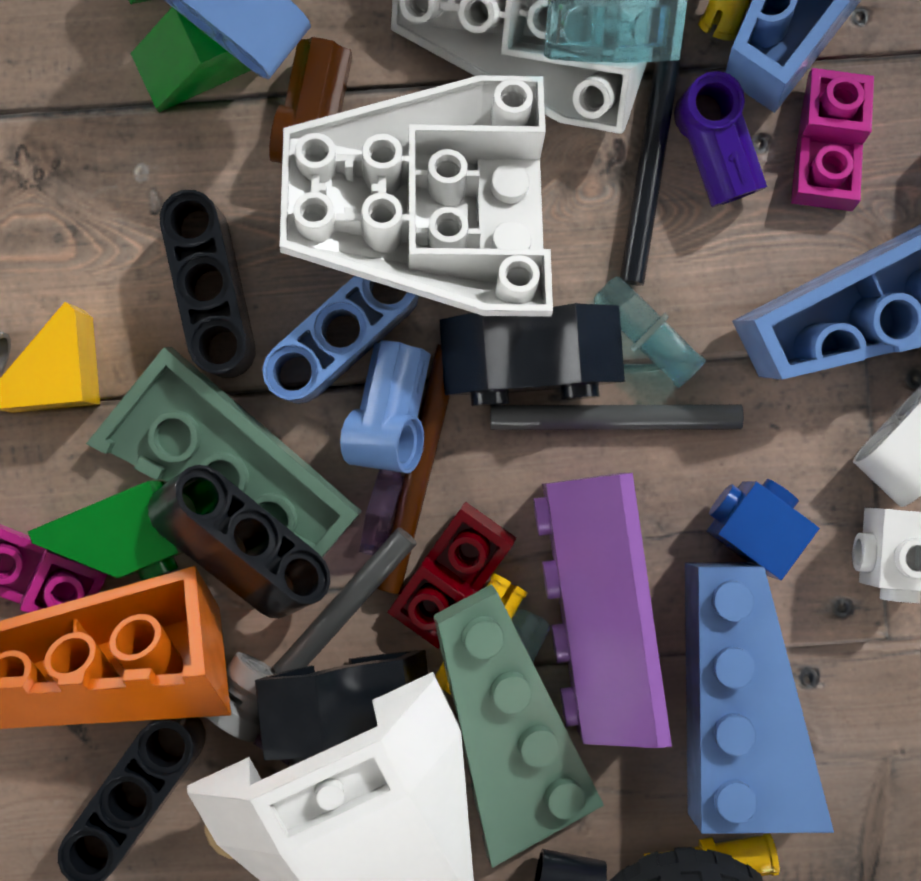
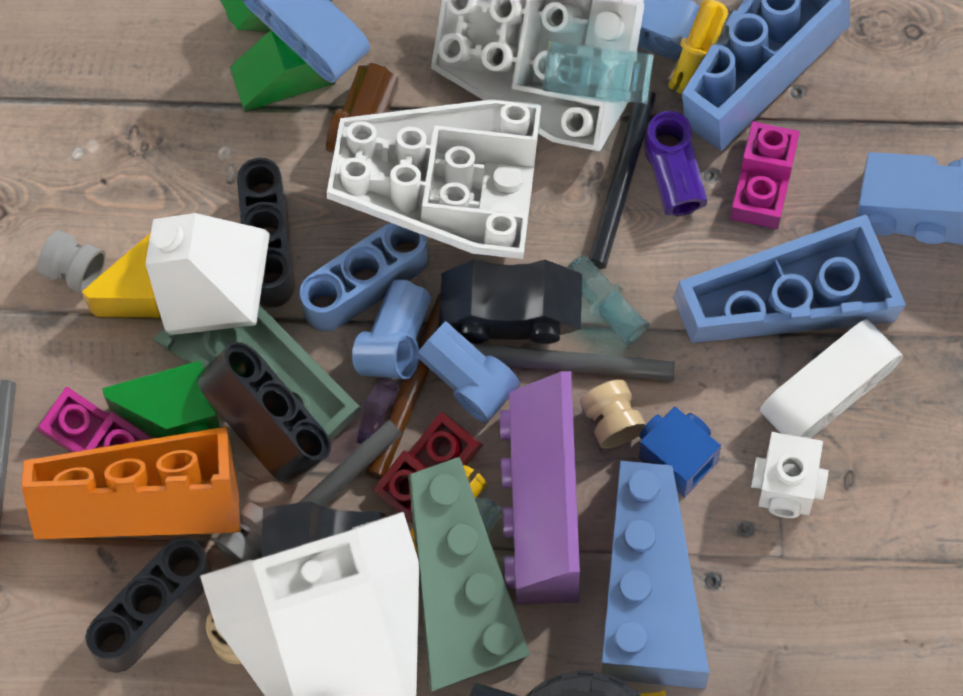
camera: 15 degrees right, 20 degrees down
(137, 363) = (206, 272): none -> white slope
(497, 457) = (478, 381): none -> medium blue piece
(675, 488) = (612, 412): none -> tan wheel

